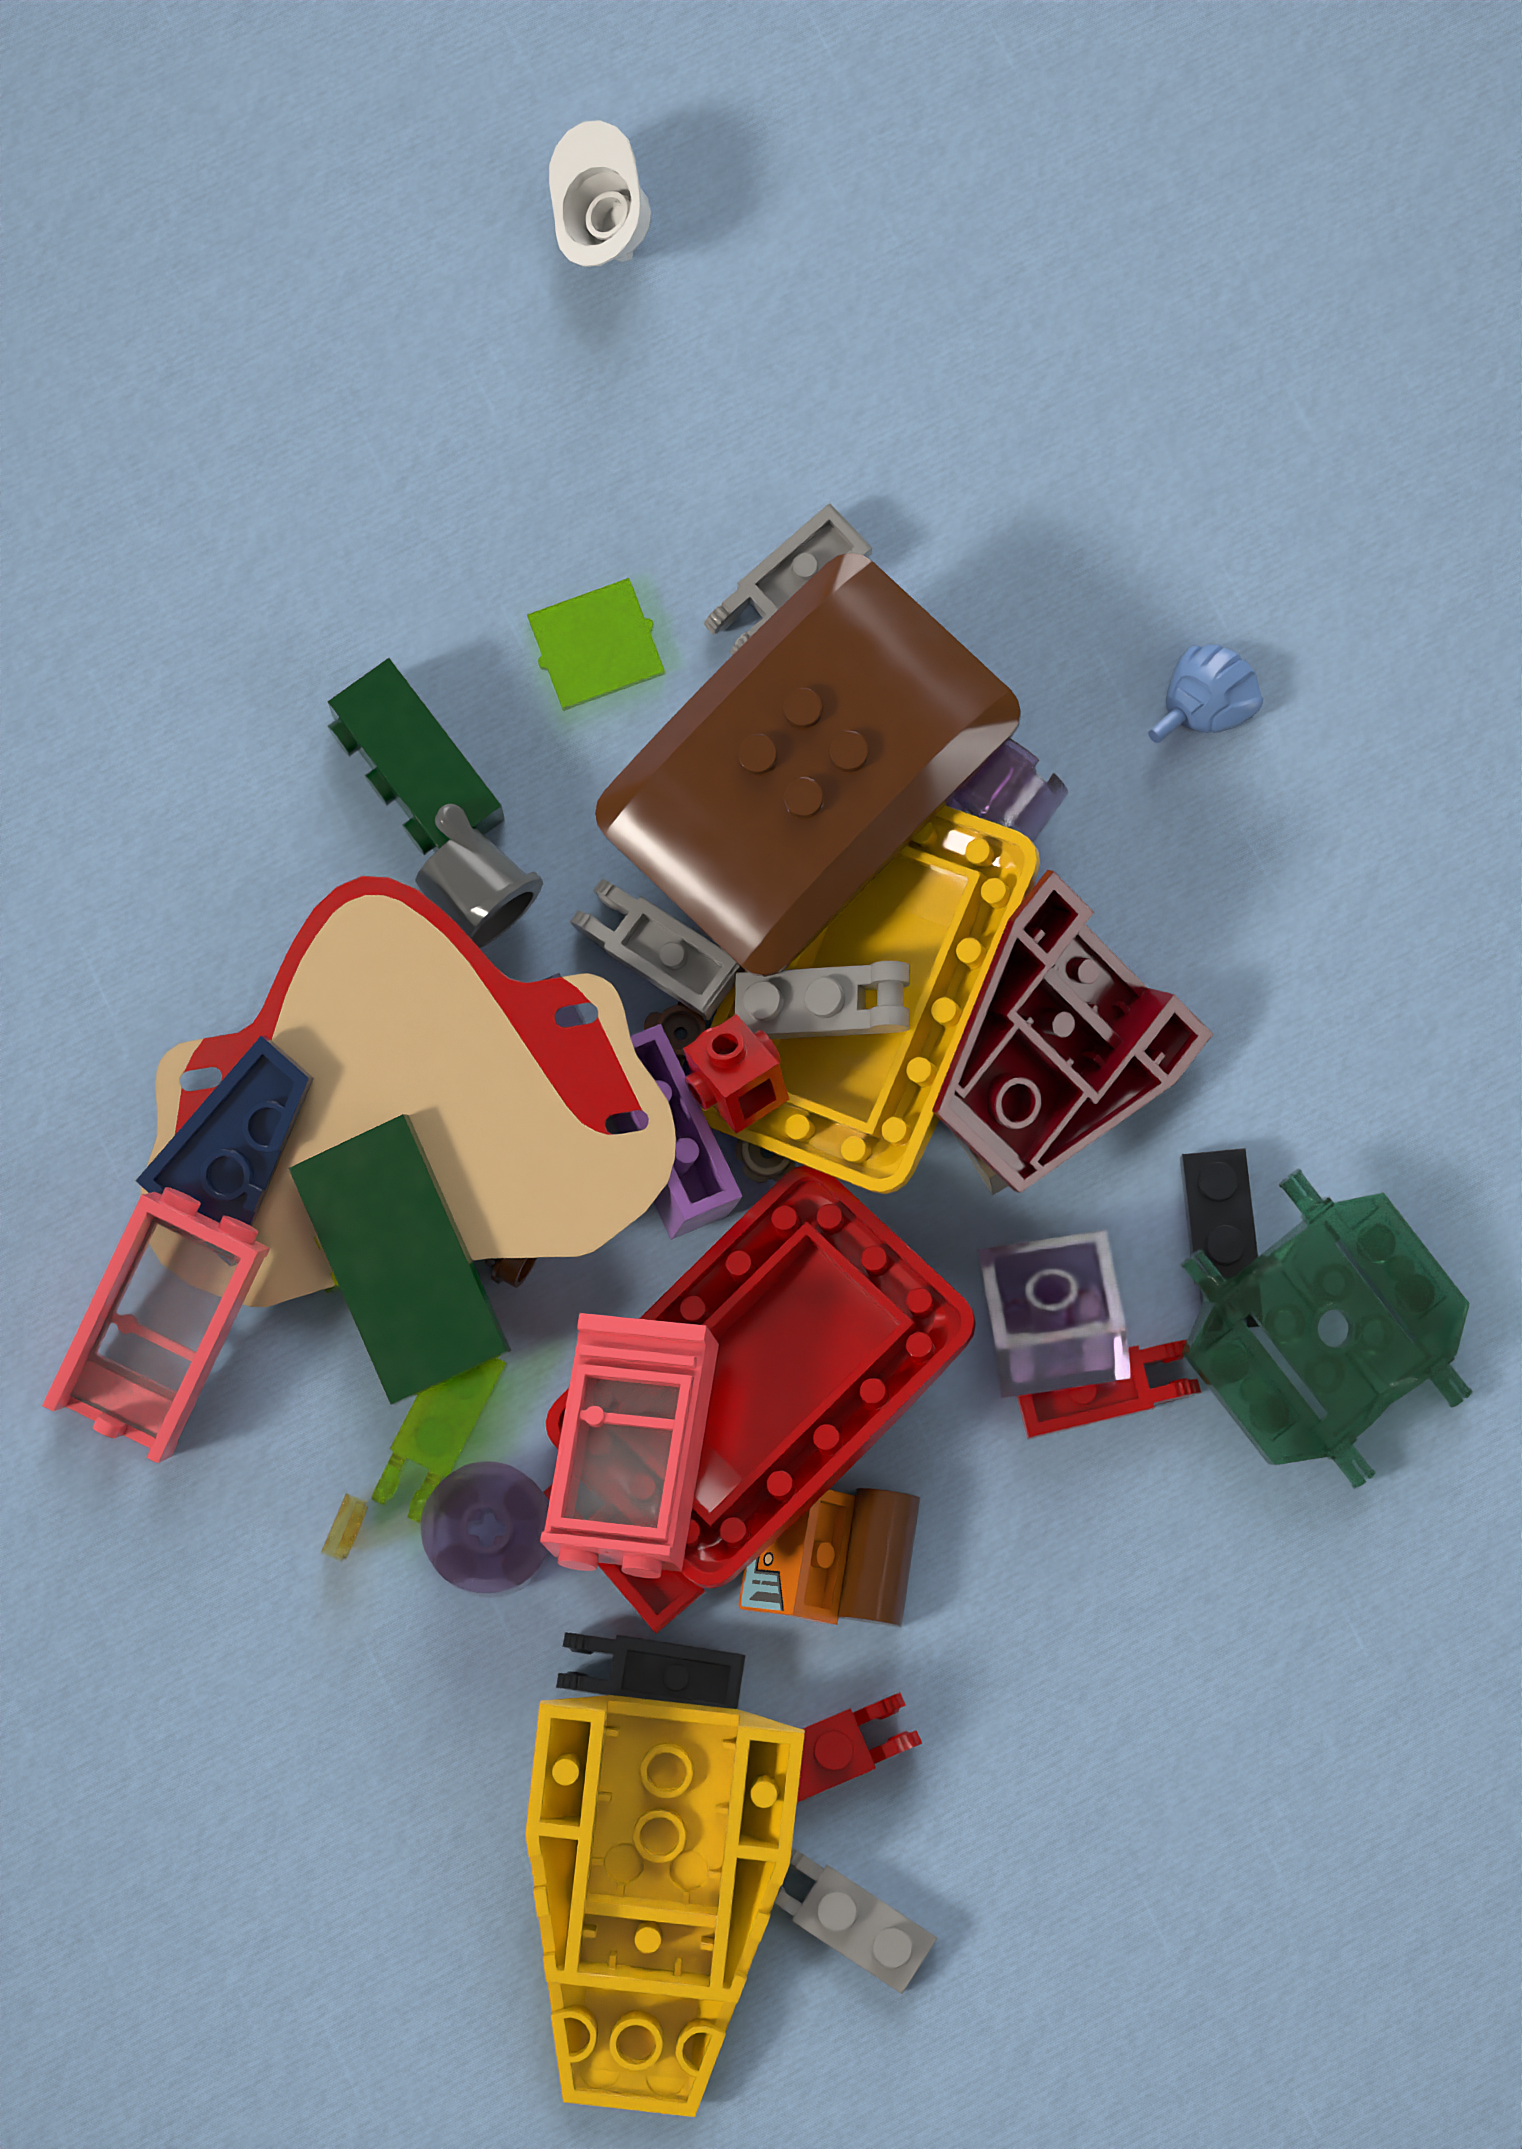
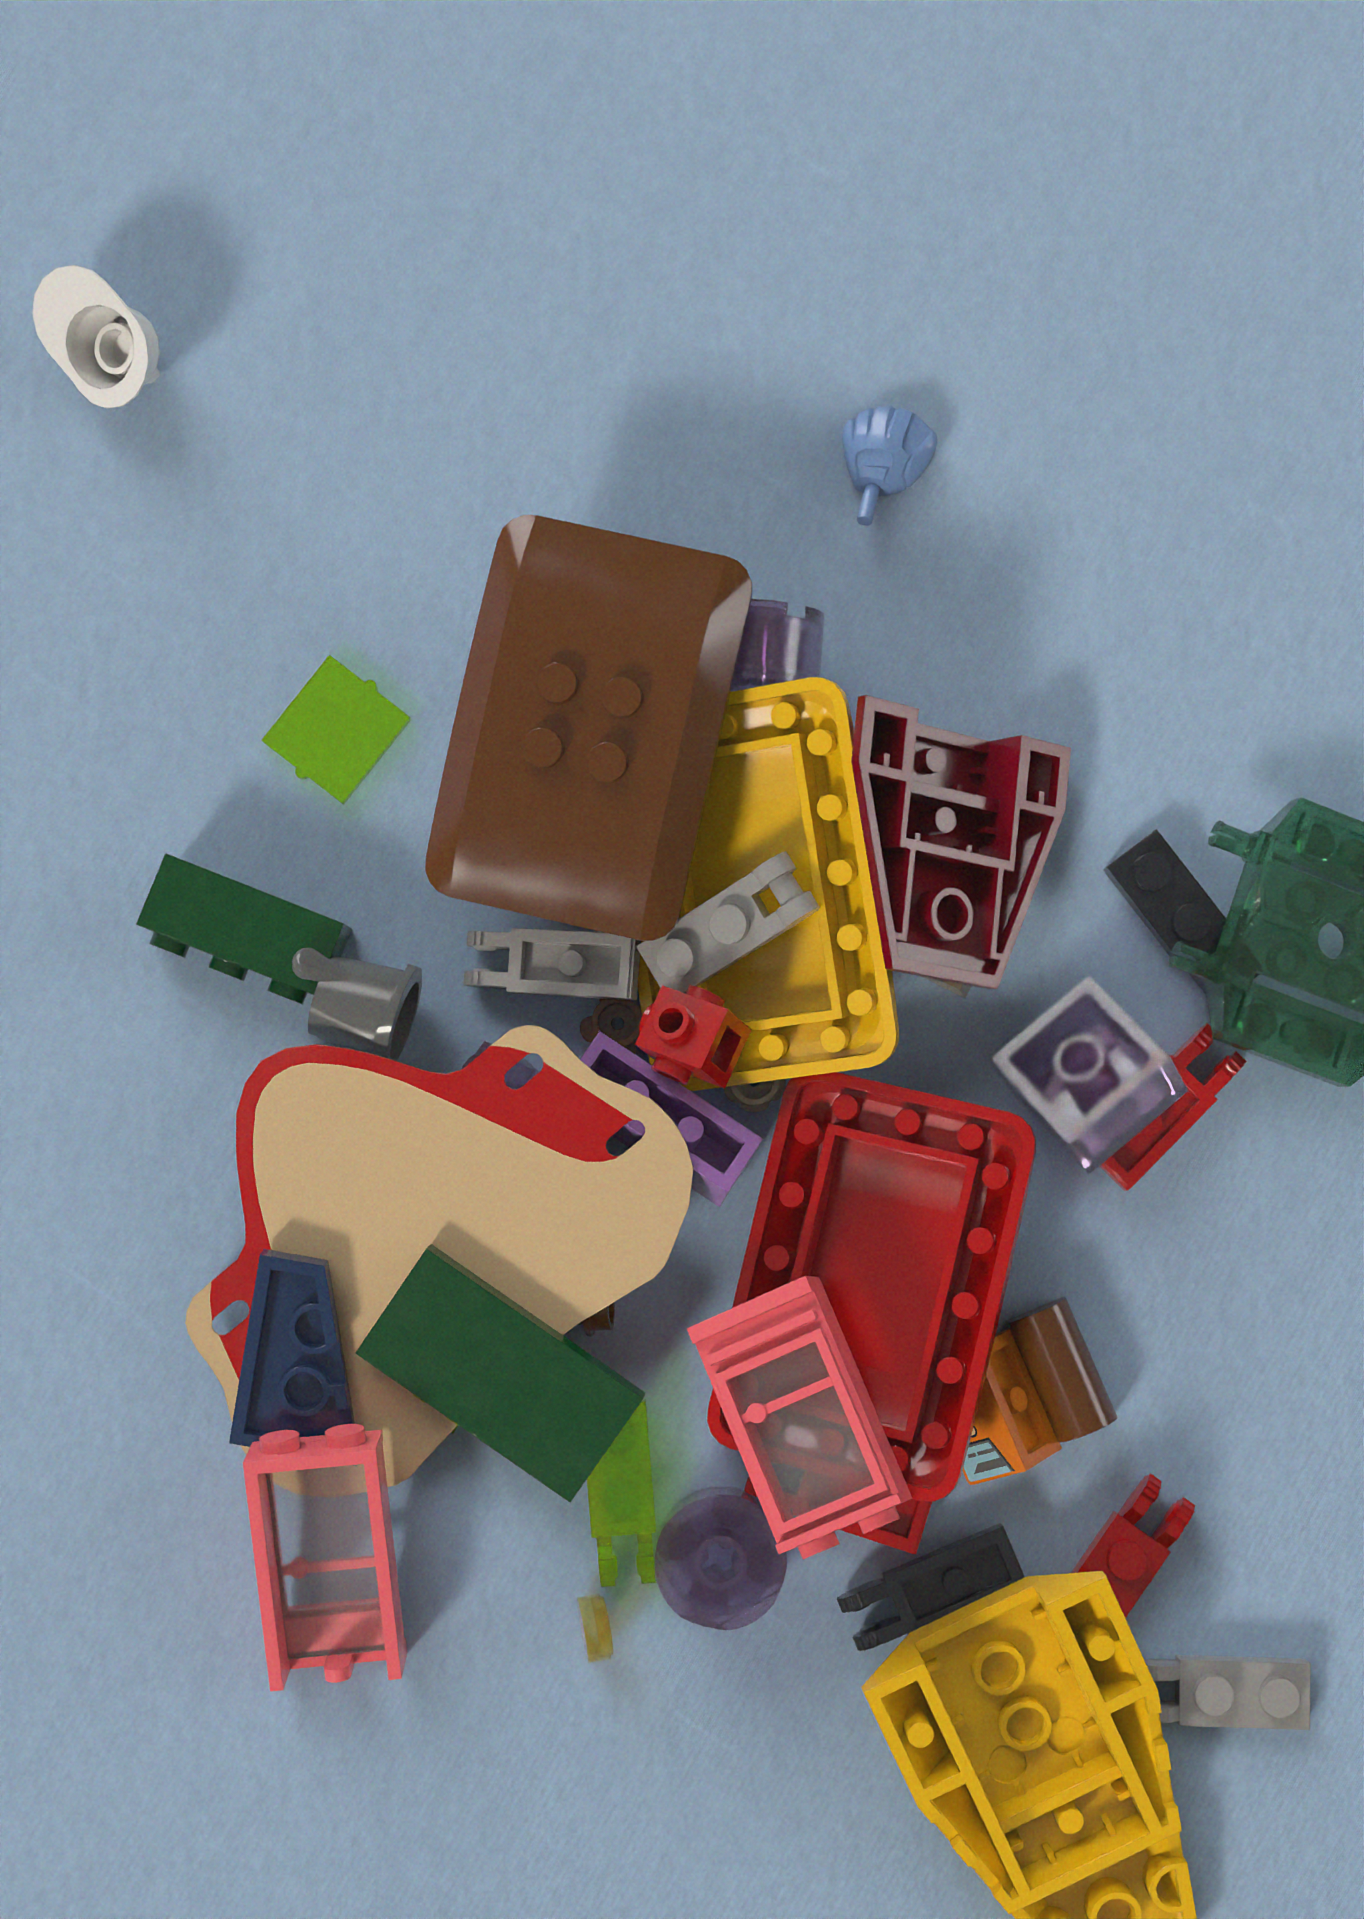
camera: 25 degrees left, 5 degrees up
(788, 570) = (465, 568): light grey hinge -> none

